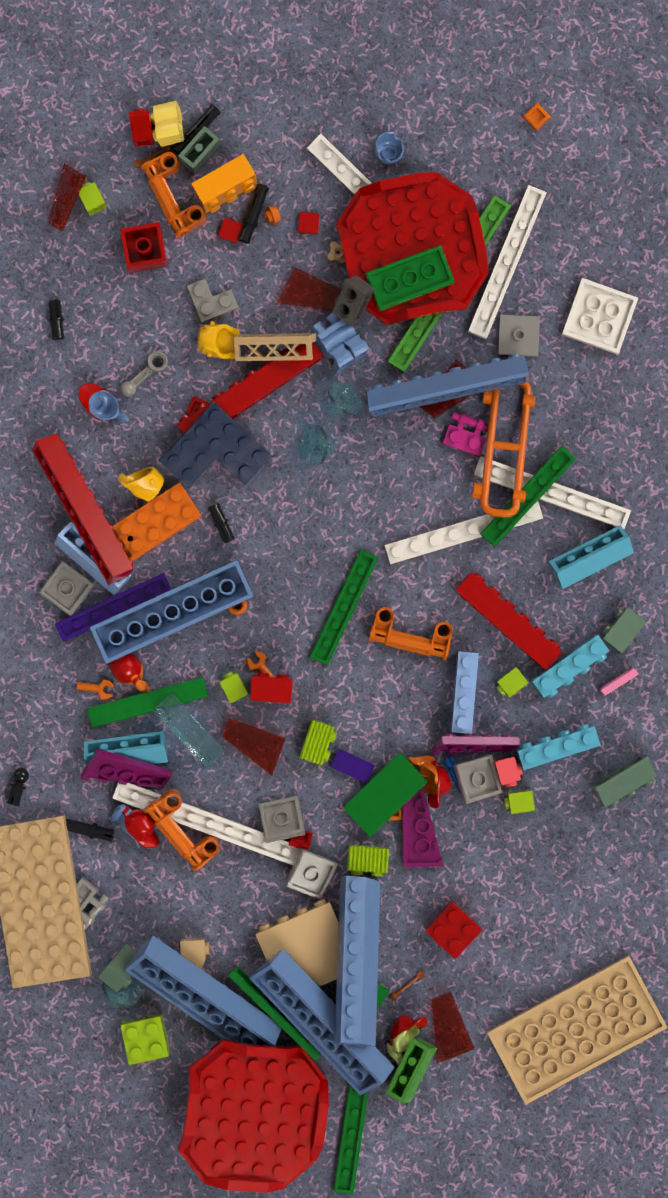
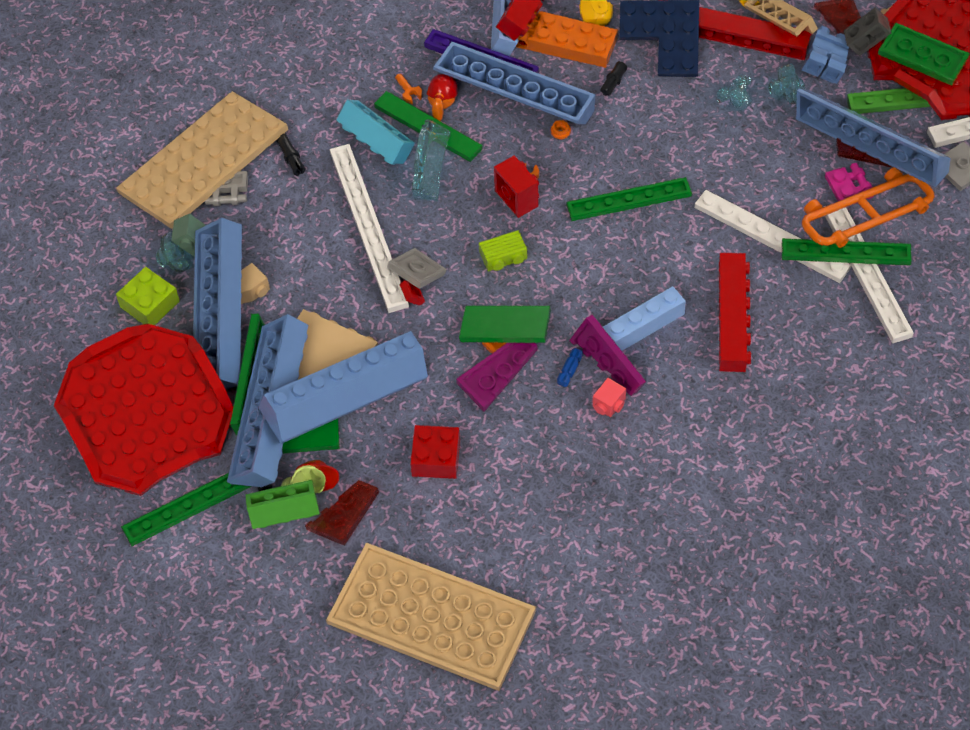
camera: 55 degrees right, 30 degrees down
(20, 776) = (293, 86): black pin -> none
(67, 588) = (467, 21): light grey plate -> none
(112, 766) = (357, 129): magenta wing -> none
(137, 825) = (323, 178): red hair -> none
(161, 813) = (335, 229): orange piece -> none
(233, 687) = (486, 169): lime brick -> none
(255, 743) = (462, 213): clear red wing -> none
(311, 874) = (389, 317): light grey plate -> none
(352, 765) = (506, 288): dark purple tile -> none
(368, 859) = (439, 351): lime brick -> none
(409, 641) = (637, 234): orange piece -> none
(420, 975) = (373, 461): dark orange hinge -> none
(438, 778) = (554, 348): hair -> none
(477, 779) = (579, 382): light grey tile -> none
(511, 682) = (685, 349): lime brick -> none
(519, 801) = (592, 425): lime brick -> none
(559, 747) = (665, 419): medium azure brick -> none
(565, 669) = (741, 379): medium azure brick -> none
(591, 557) = (846, 330): medium azure brick -> none
(618, 681) = (764, 426): bright pink tile -> none
(623, 629) = (811, 398): sand green brick -> none
(624, 781) = (686, 485): sand green slope -> none

